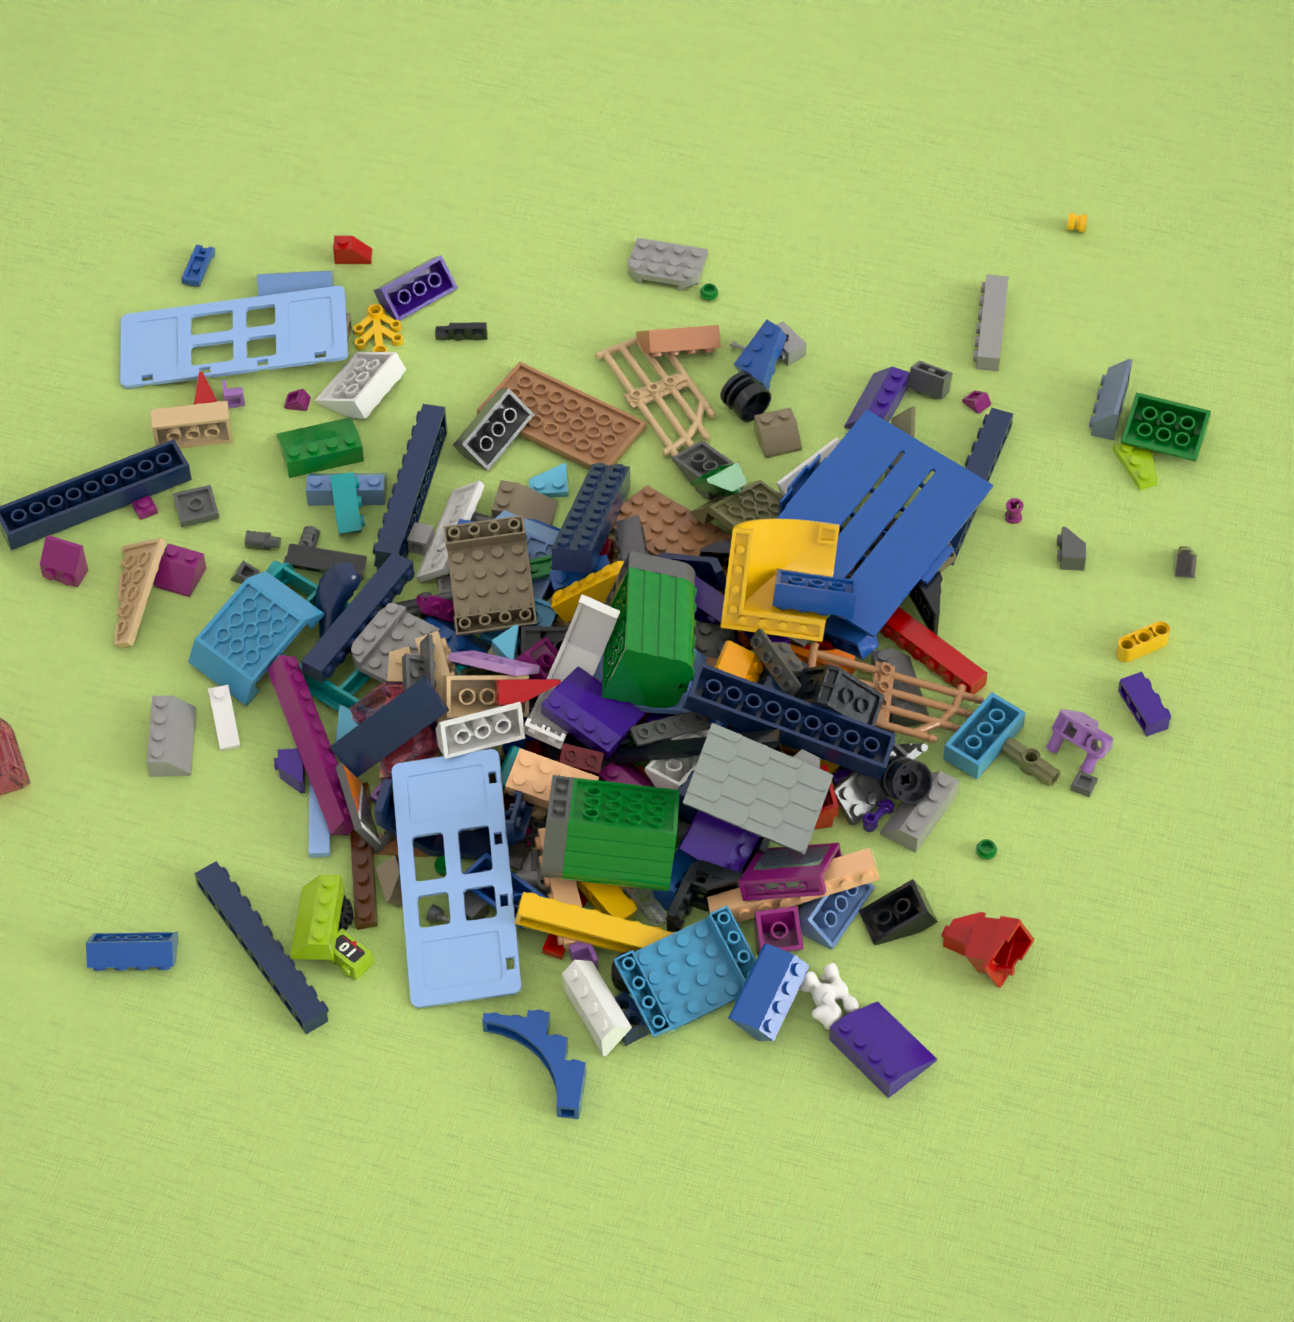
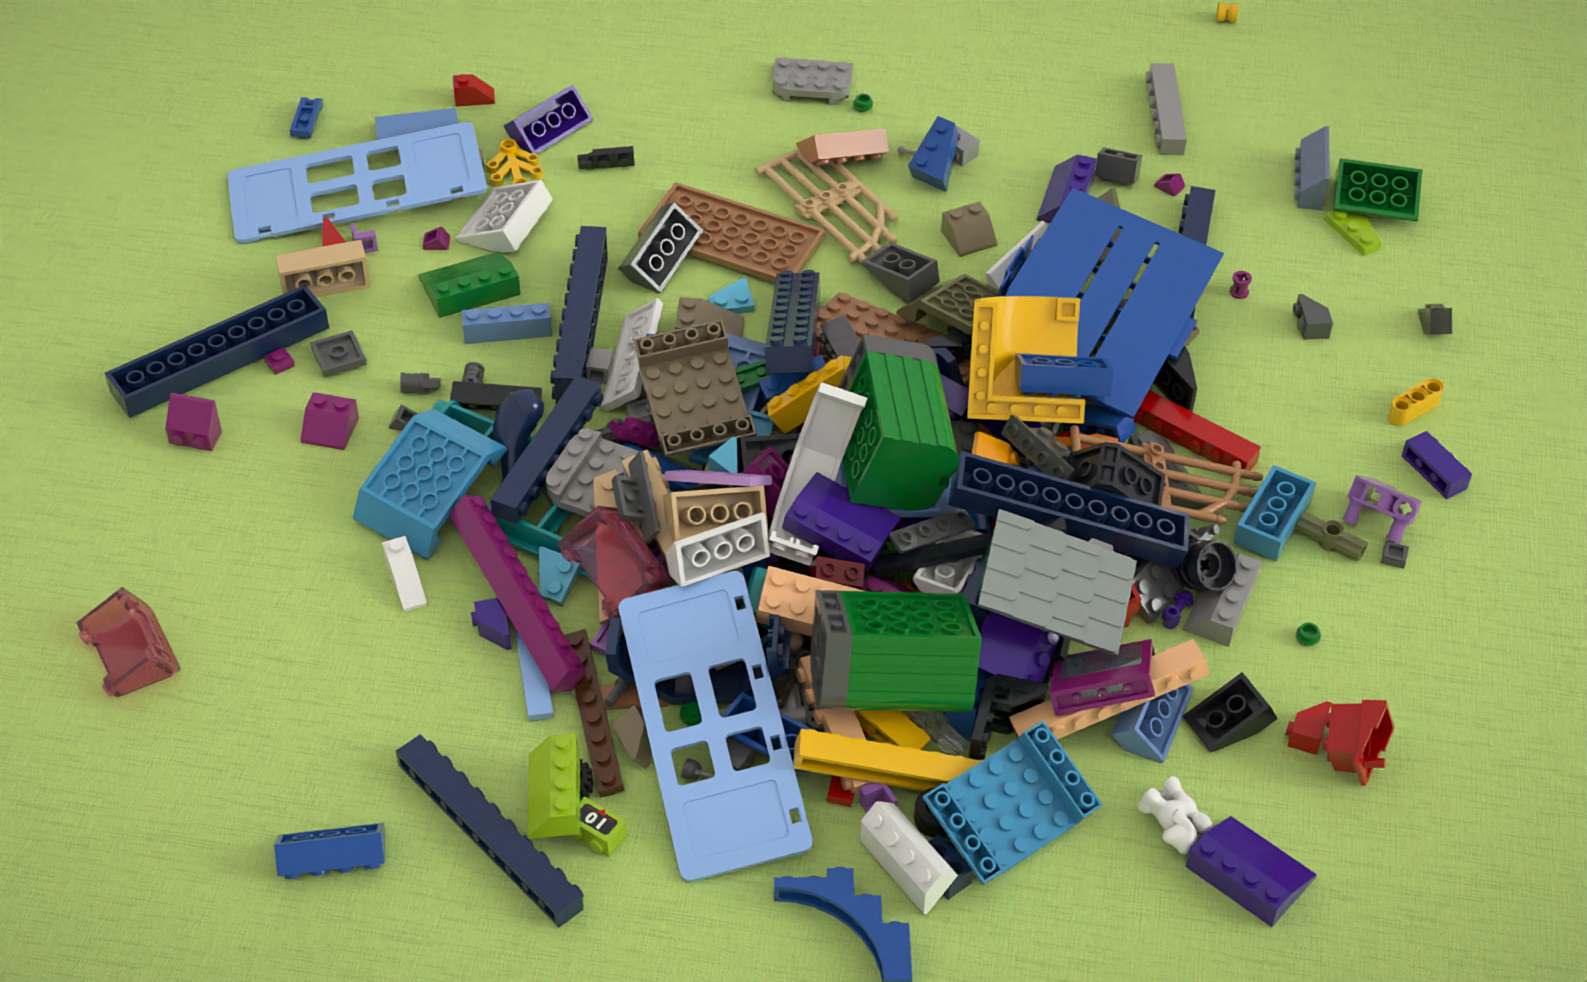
camera: 10 degrees left, 5 degrees down
(135, 584) = (279, 442): tan wing -> none
(170, 737) = (344, 601): light grey slope -> none
(347, 503) = (511, 334): teal brick -> none
(358, 806) = (582, 654): dark grey tile -> none
(390, 727) = (608, 560): dark blue tile -> none
(521, 690) = (755, 501): red slope -> none
(722, 480) = (927, 274): slope -> none
(745, 396) = (928, 195): black wheel -> none
(768, 992) = (1109, 818): blue slope -> none
(778, 928) = (1101, 746): magenta slope -> none

